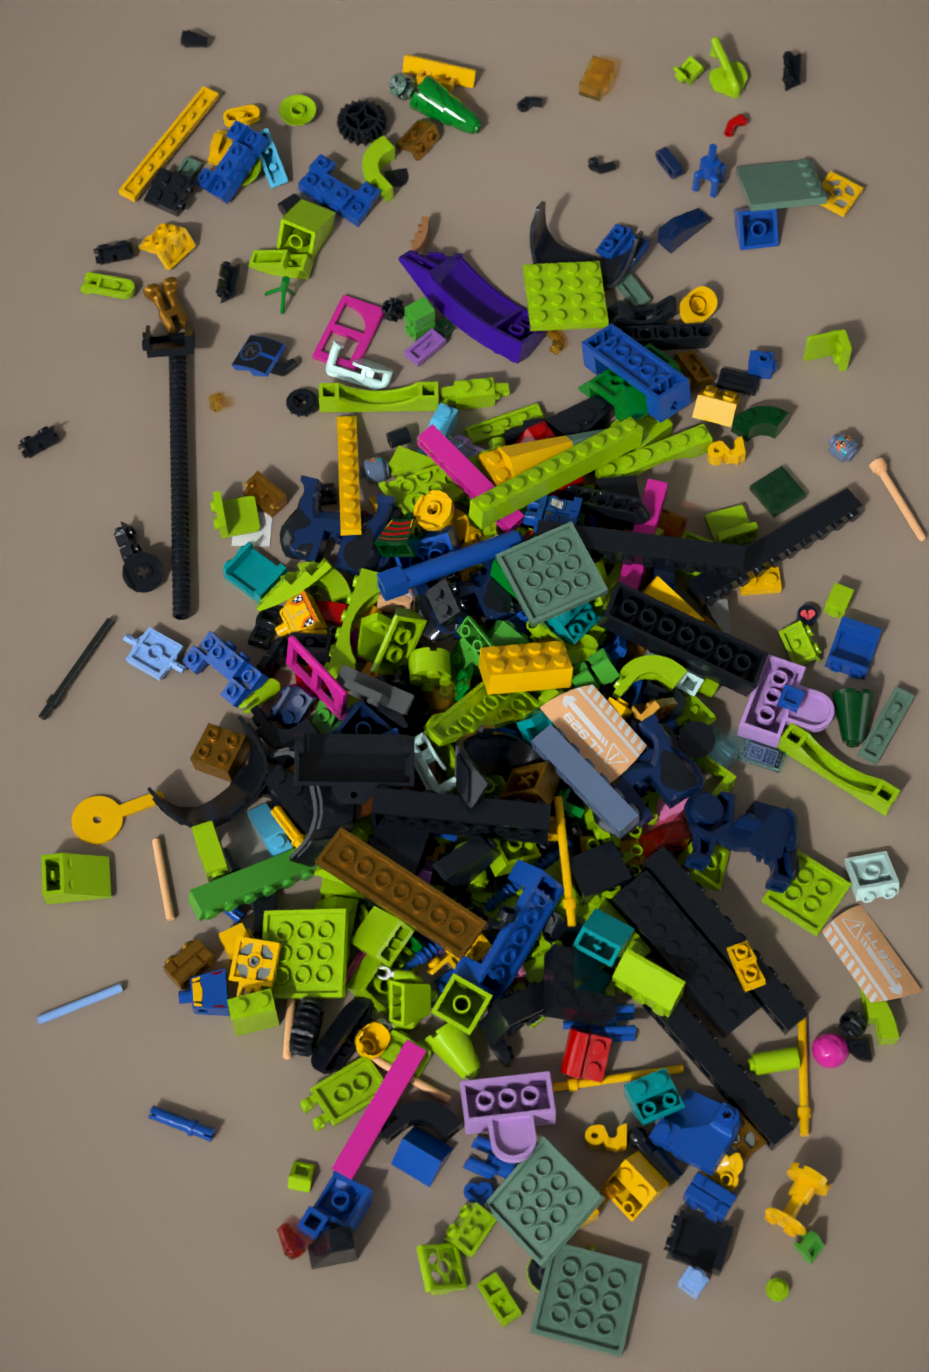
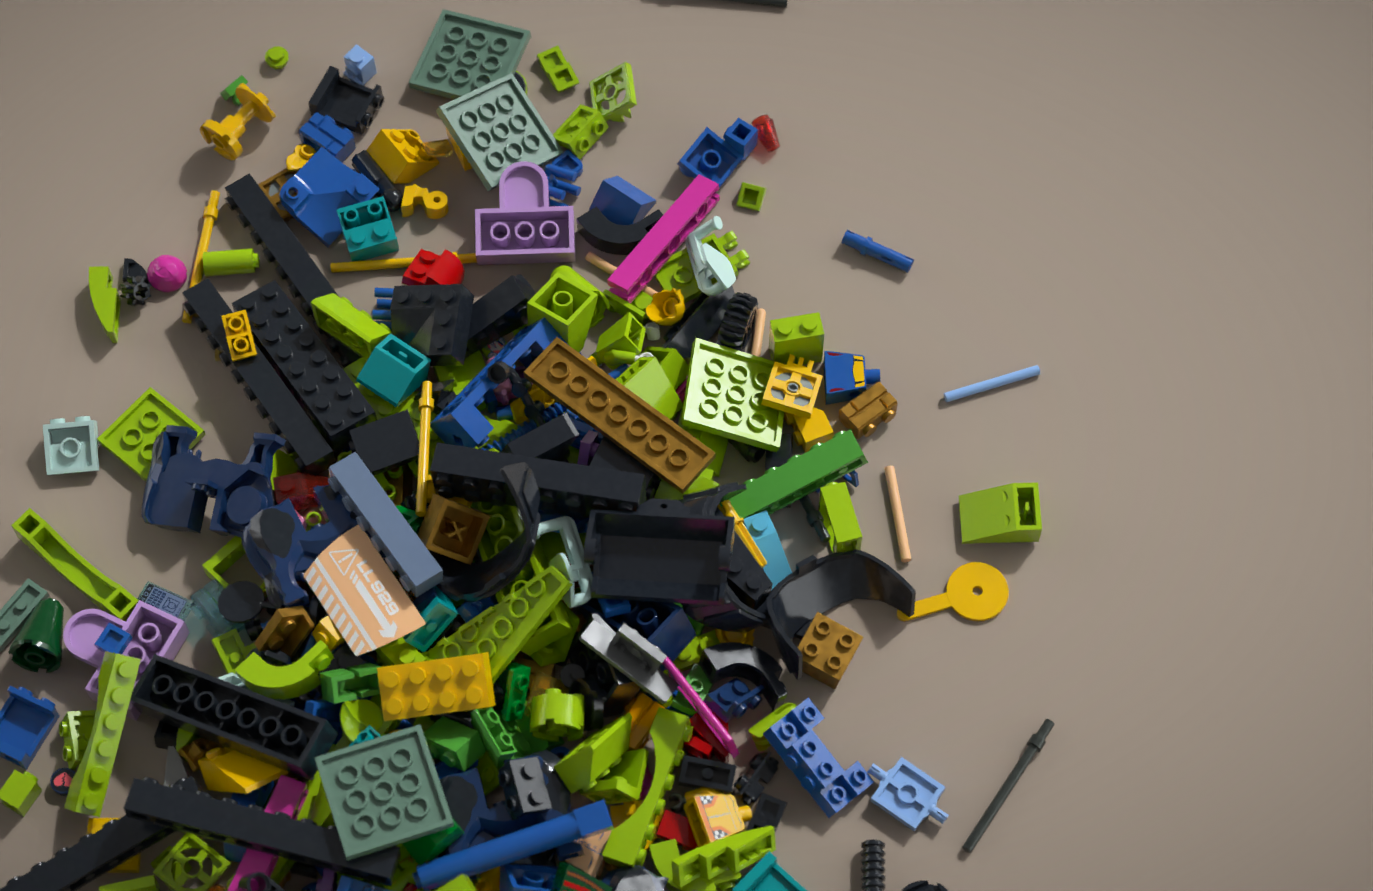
camera: 175 degrees left, 0 degrees up
(329, 1075) = (708, 261): none -> light aqua piece
(332, 1248) = (718, 109): black slope -> none
(778, 659) = (114, 695): none -> lime arch
(869, 956) = (98, 357): light nougat sticker -> none

